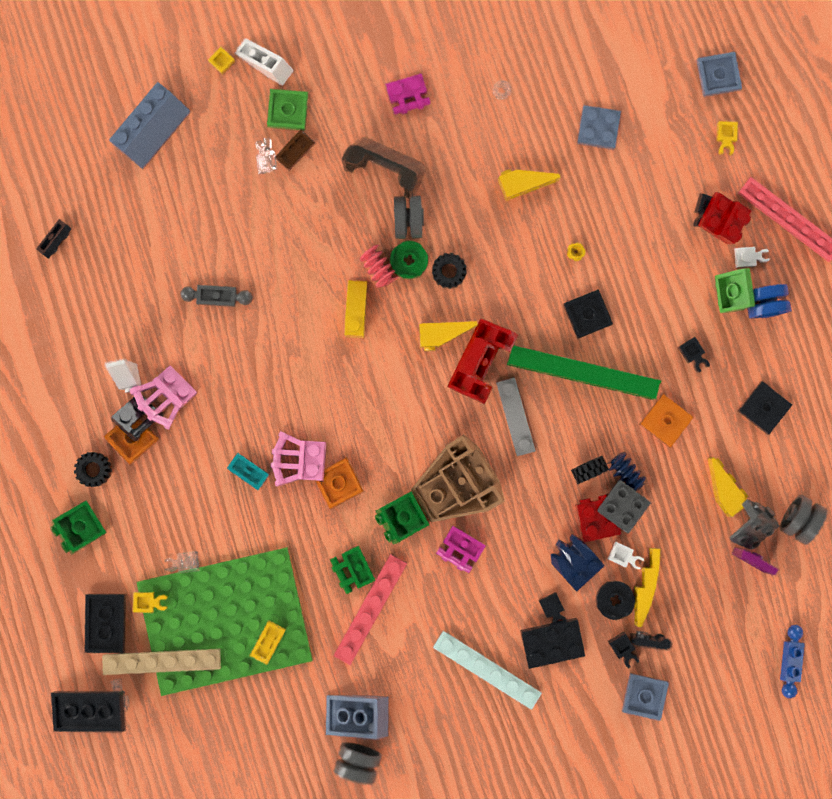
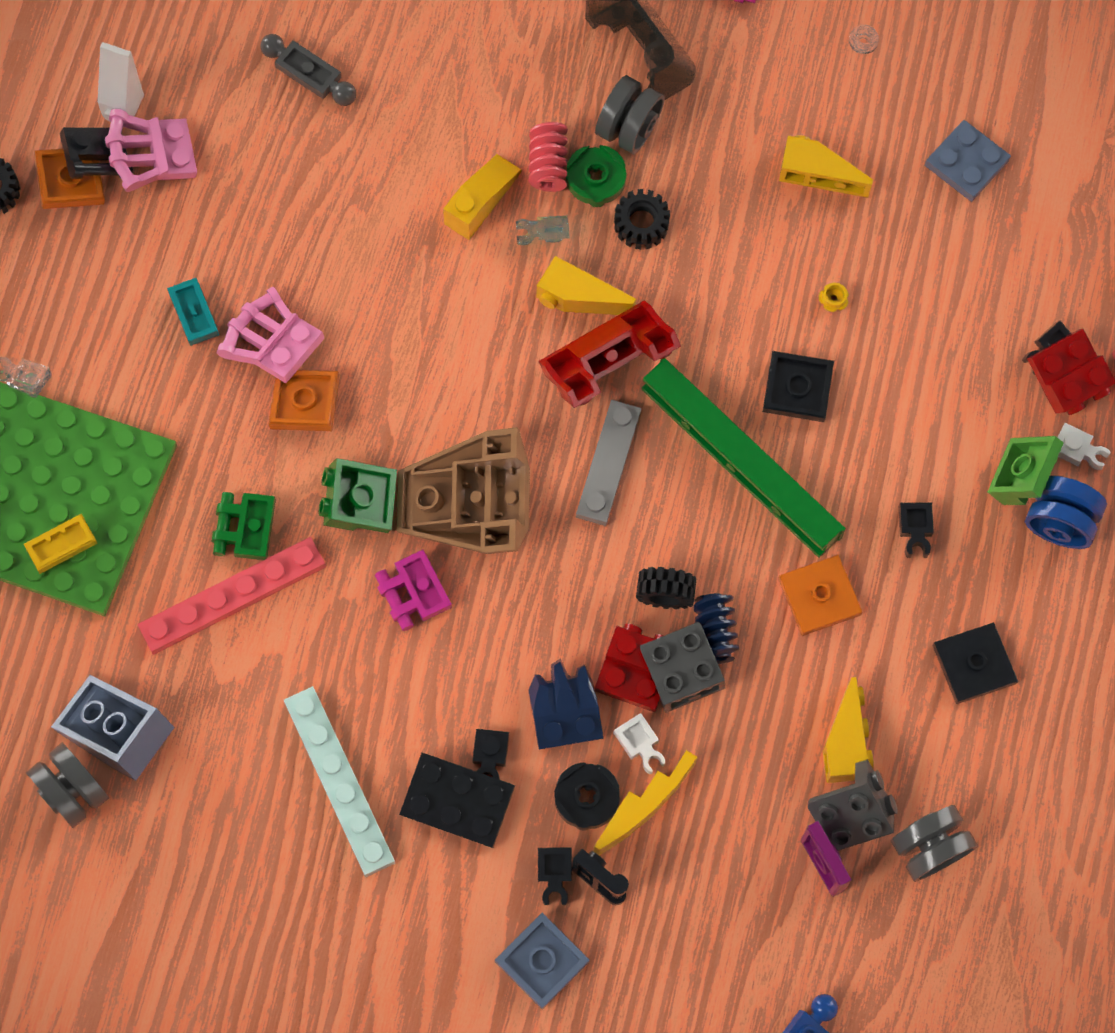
camera: 30 degrees right, 15 degrees down
(403, 308) = (548, 228): none -> clear light blue plate

